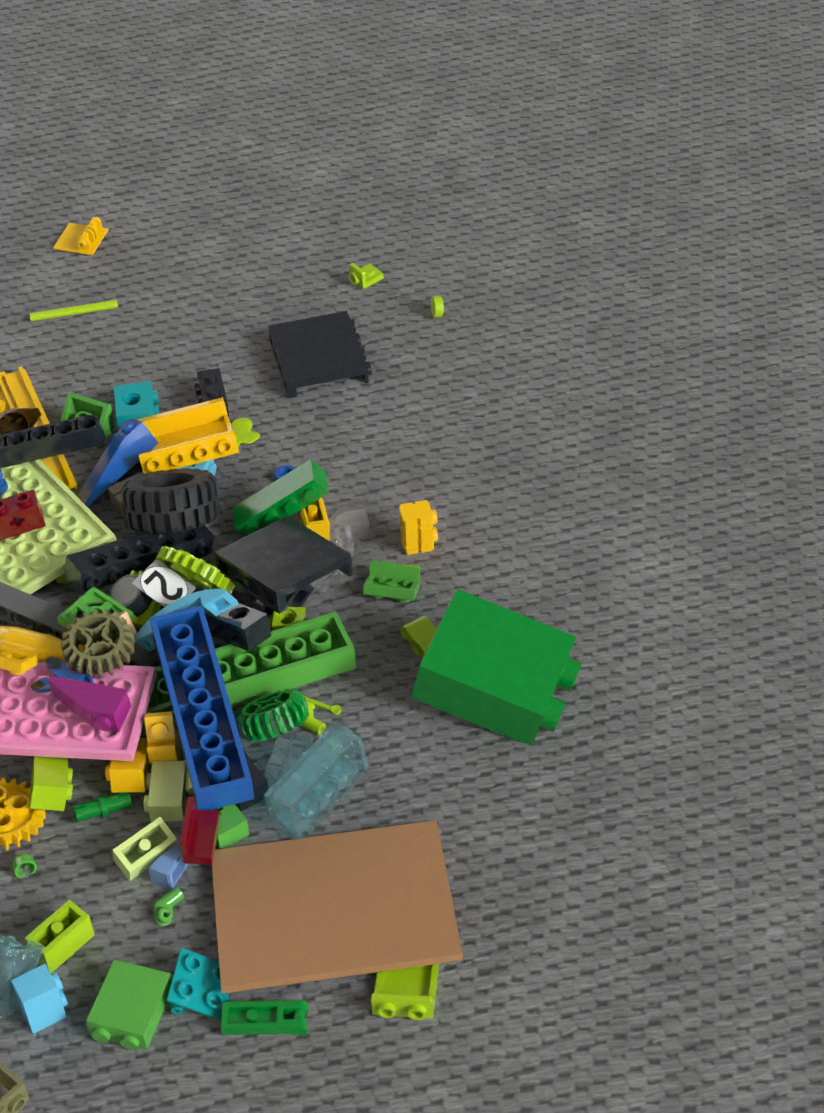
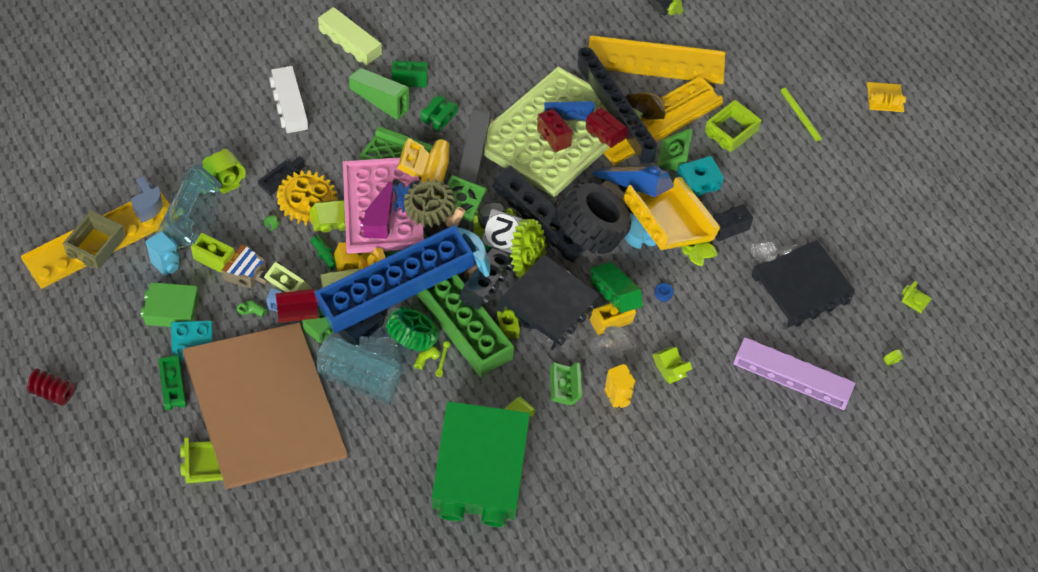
camera: 70 degrees right, 10 degrees up
(33, 466) = (605, 127): none -> dark red brick
(71, 349) = (741, 115): none -> lime window
(101, 899) = (245, 268): none -> torso
(269, 367) = (766, 251): none -> clear hinge
(395, 485) = (670, 364): none -> lime brick
(434, 386) = (794, 373): none -> lavender brick

